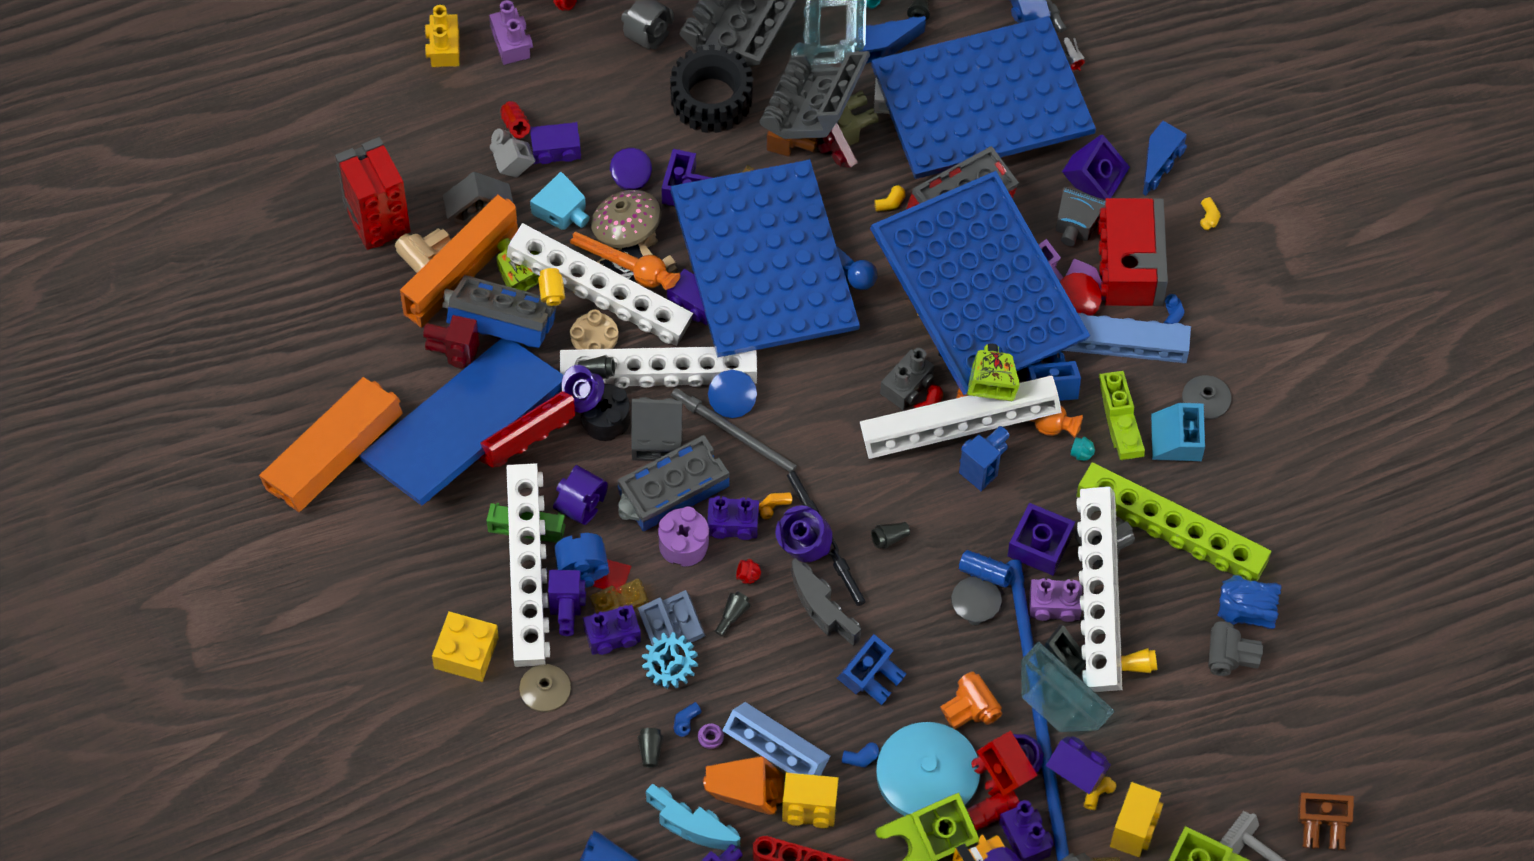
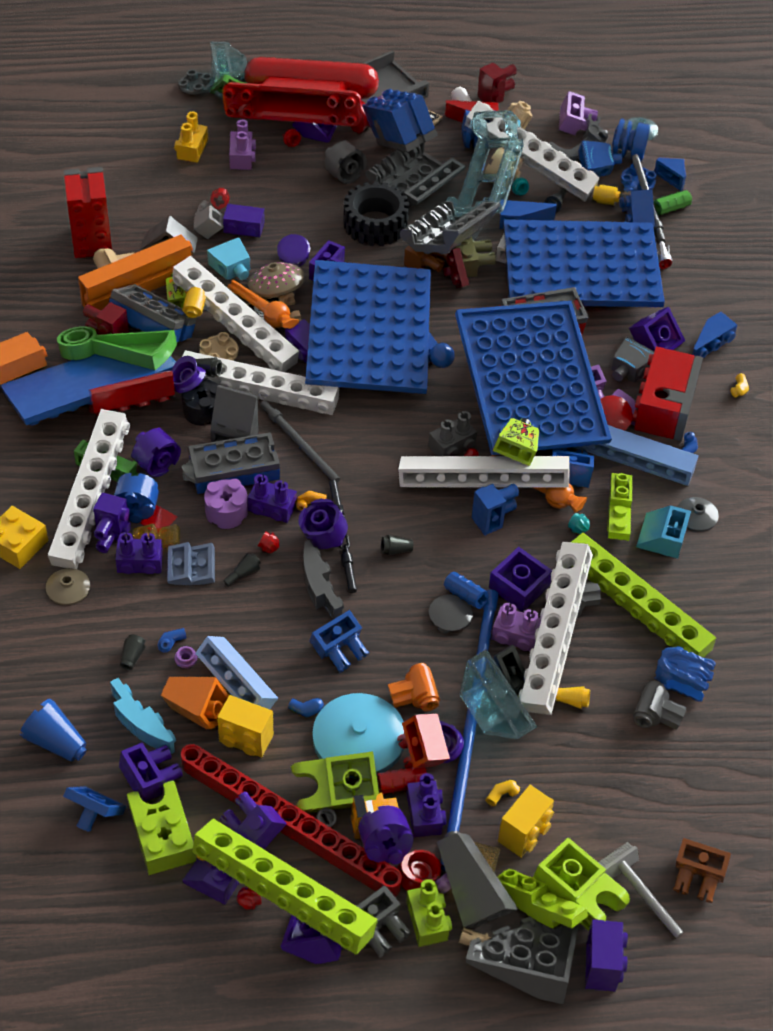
camera: 15 degrees right, 10 degrees down
(511, 365) = (137, 348): none -> bright green piece
(668, 671) = (175, 590): medium azure gear -> none
(732, 393) = (307, 413): blue dish -> none
(1079, 764) = (490, 760): dark purple brick -> none

